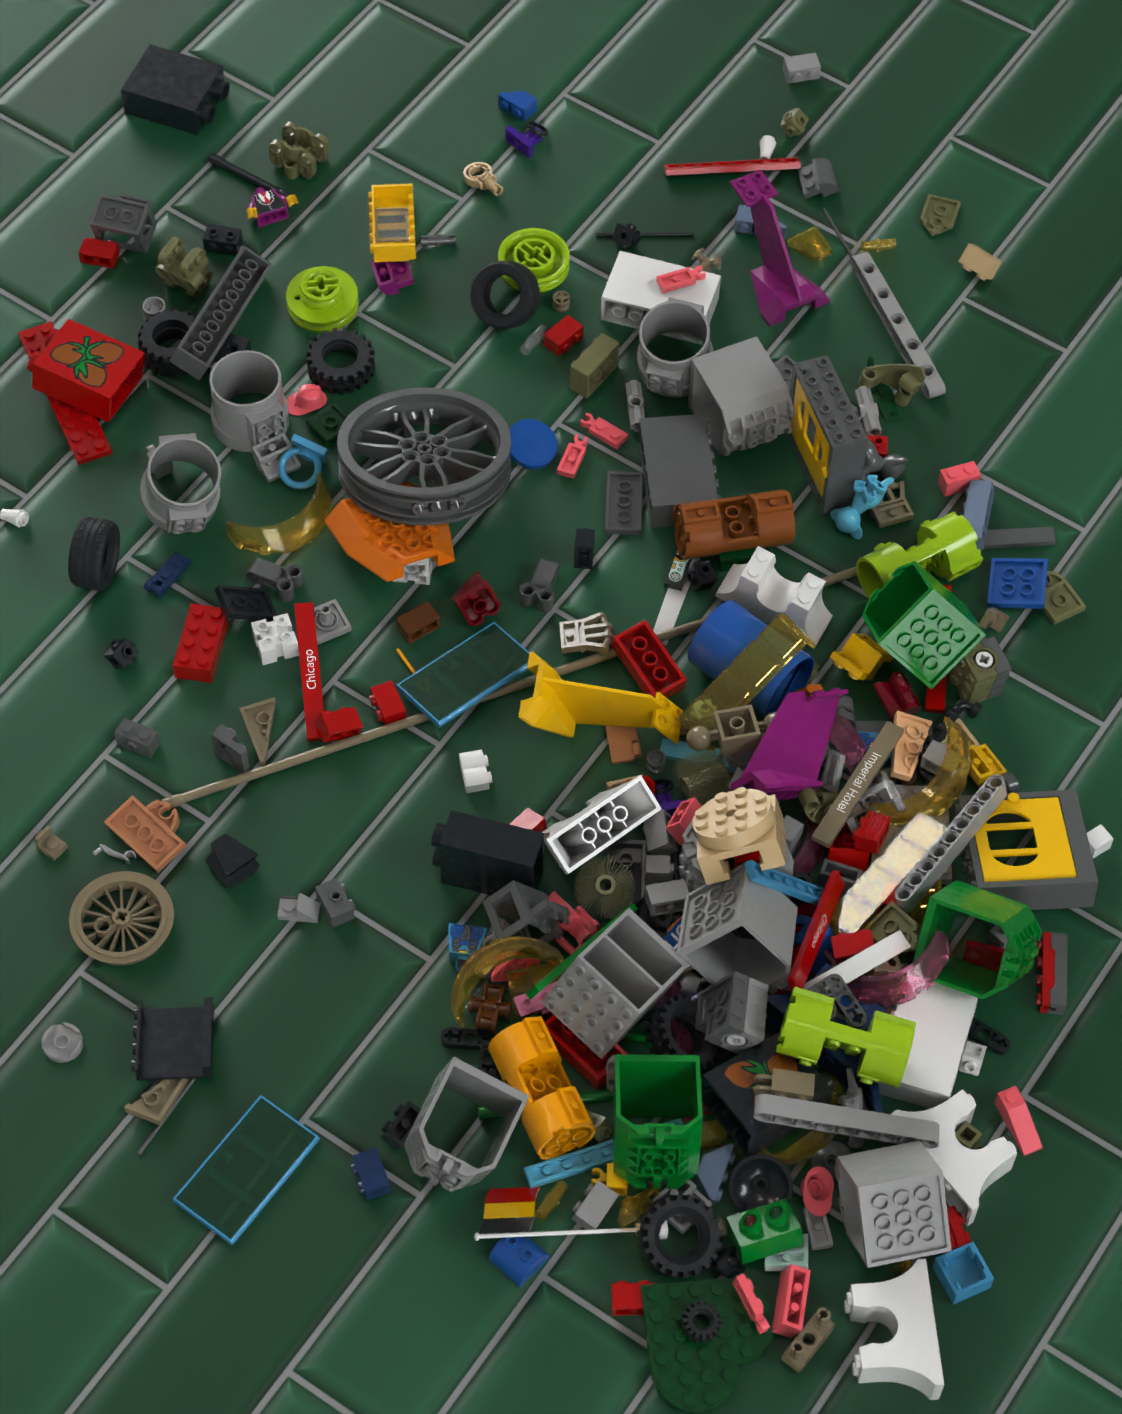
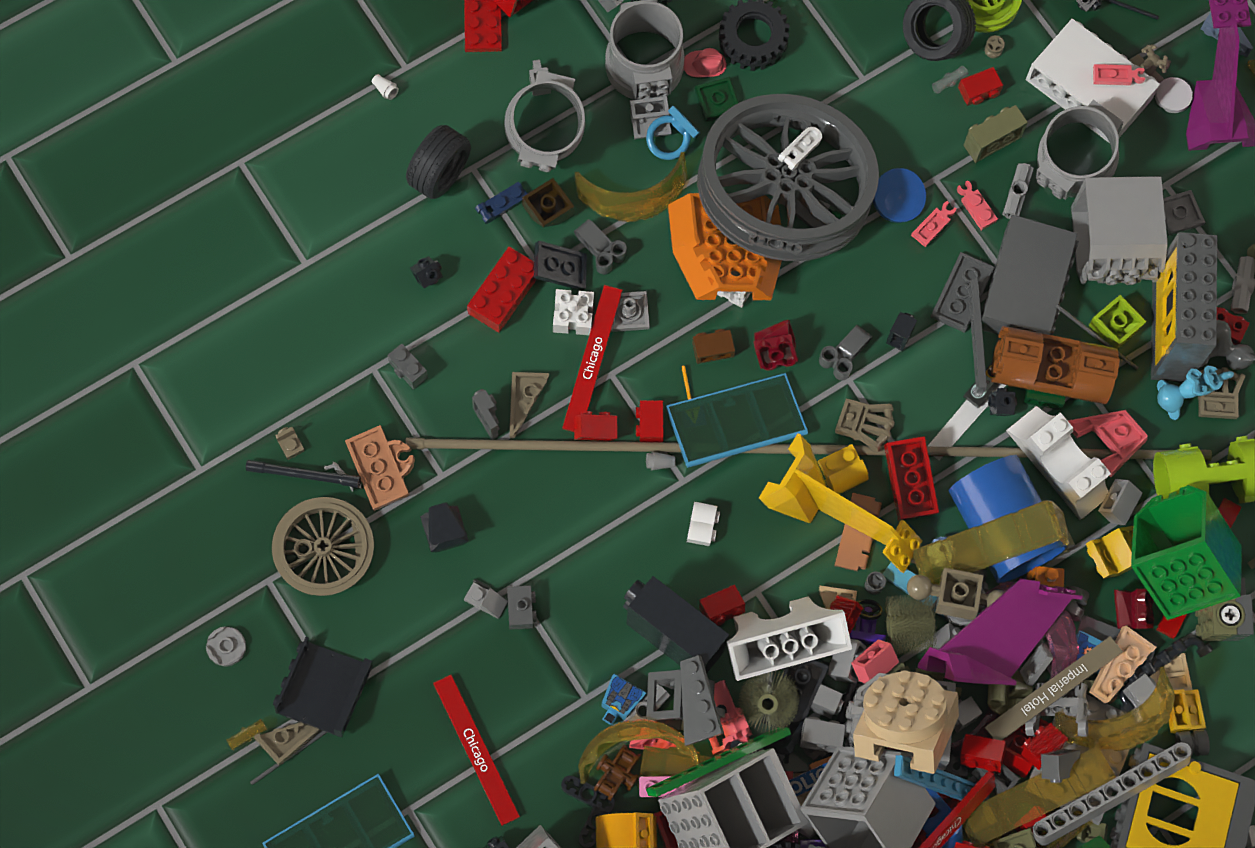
camera: 20 degrees right, 15 degrees up
(34, 873) = (343, 479): none -> black piece
(115, 1111) = (246, 734): none -> clear yellow pin
(212, 558) = (548, 204): none -> dark brown slope
(347, 1042) = (476, 750): none -> red tile
(409, 734) = (659, 461): none -> light grey cone
(426, 425) = (801, 147): none -> white plate
(544, 904) = (699, 708): none -> dark grey wing
(586, 672) = (843, 469): none -> yellow brick
(654, 529) = (977, 336): none -> dark grey tile
(736, 287) = (1173, 95): none -> white tile
(751, 489) = (1094, 335): none -> dark grey axle
(772, 474) = (1117, 322): none -> lime slope
(816, 561) = (1117, 432): none -> coral wing
(820, 857) = (983, 753): none -> red brick
(843, 616) = (1120, 502): none -> light grey brick
(891, 836) = (1058, 764): none -> dark grey arch

